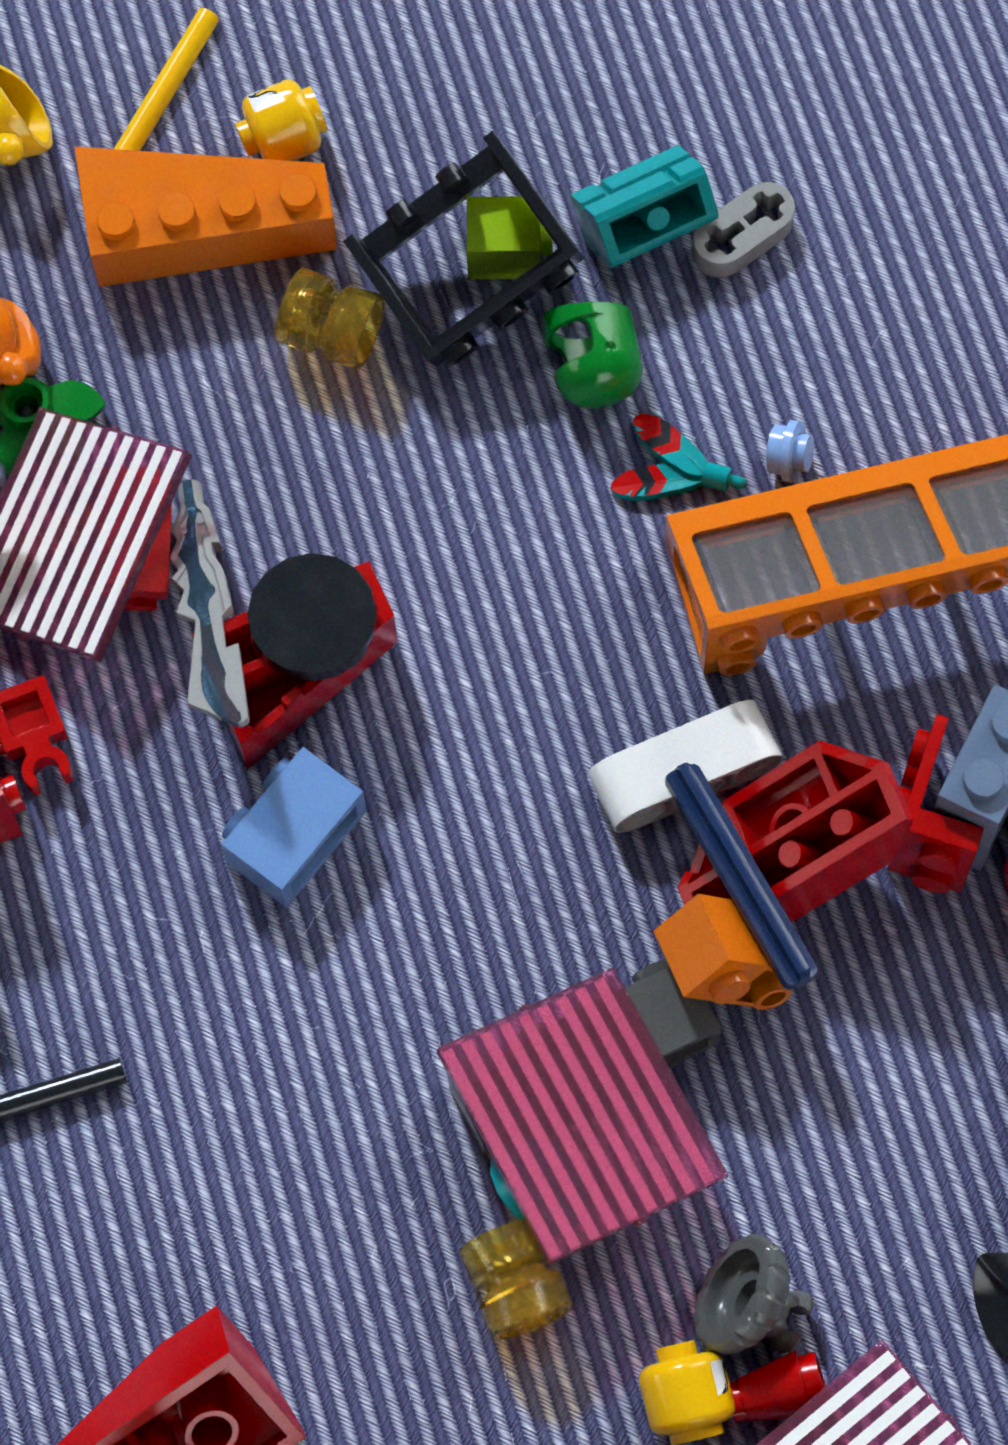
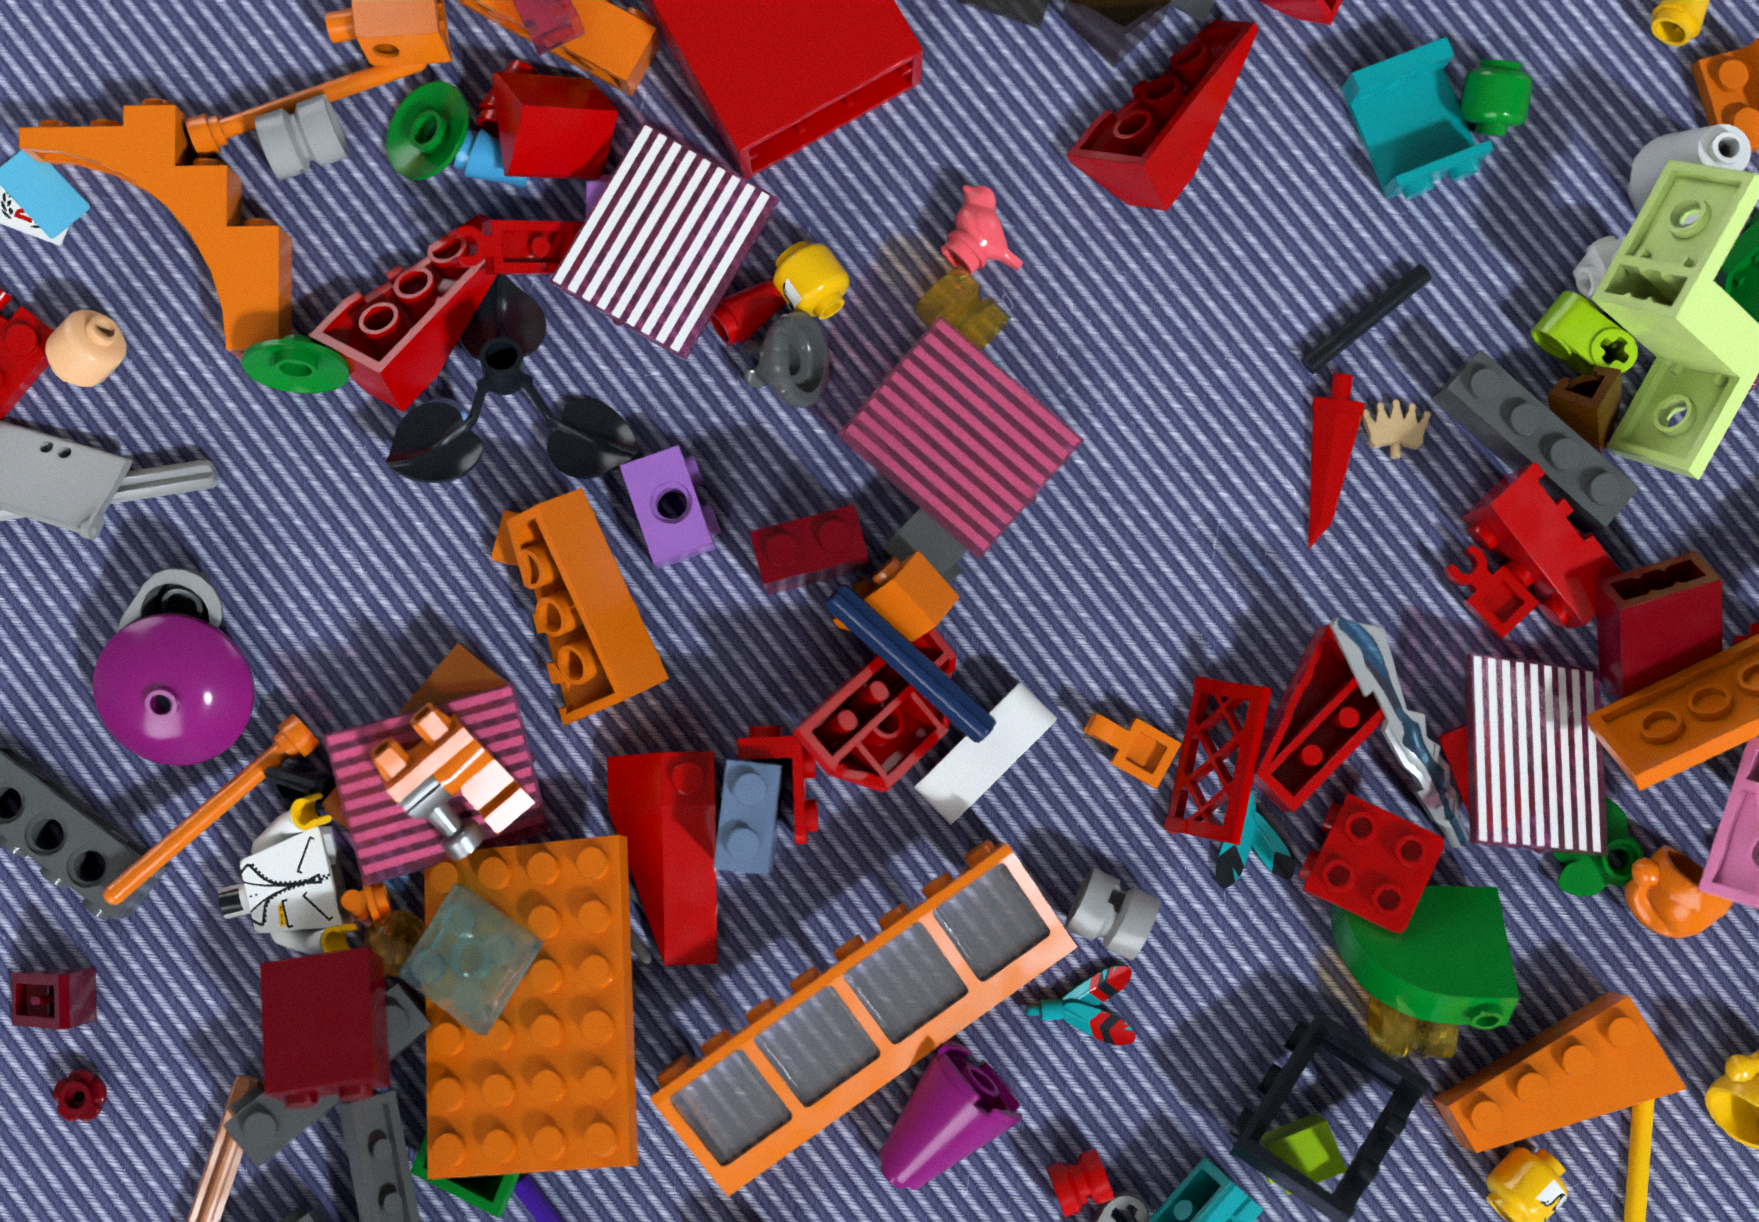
camera: 150 degrees right, 15 degrees up
(51, 960) = (1395, 429): none -> tan piece
(129, 976) = (1333, 439): none -> red bar
(281, 376) = (1445, 964): none -> green brick
(292, 825) = (1263, 591): medium blue piece -> none
(306, 480) = (1372, 863): none -> red bracket
(312, 616) = (1318, 743): black tile -> none
(383, 721) = (1246, 739): none -> red window
(421, 583) = (1264, 841): none -> teal piece
(455, 1377) = (978, 233): none -> coral animal
(509, 706) = (1138, 749): none -> orange plate
(599, 367) = (1182, 1076): green helmet -> none
(616, 547) = (1112, 913): none -> light grey wheel
(755, 291) = (1080, 1182): none -> red wheel
(789, 451) = (1001, 1050): light blue plate -> none
(812, 1049) = (810, 549): none -> dark red brick
(875, 399) = (947, 1118): none -> magenta cone
(975, 1145) = (648, 483): none -> medium lavender brick

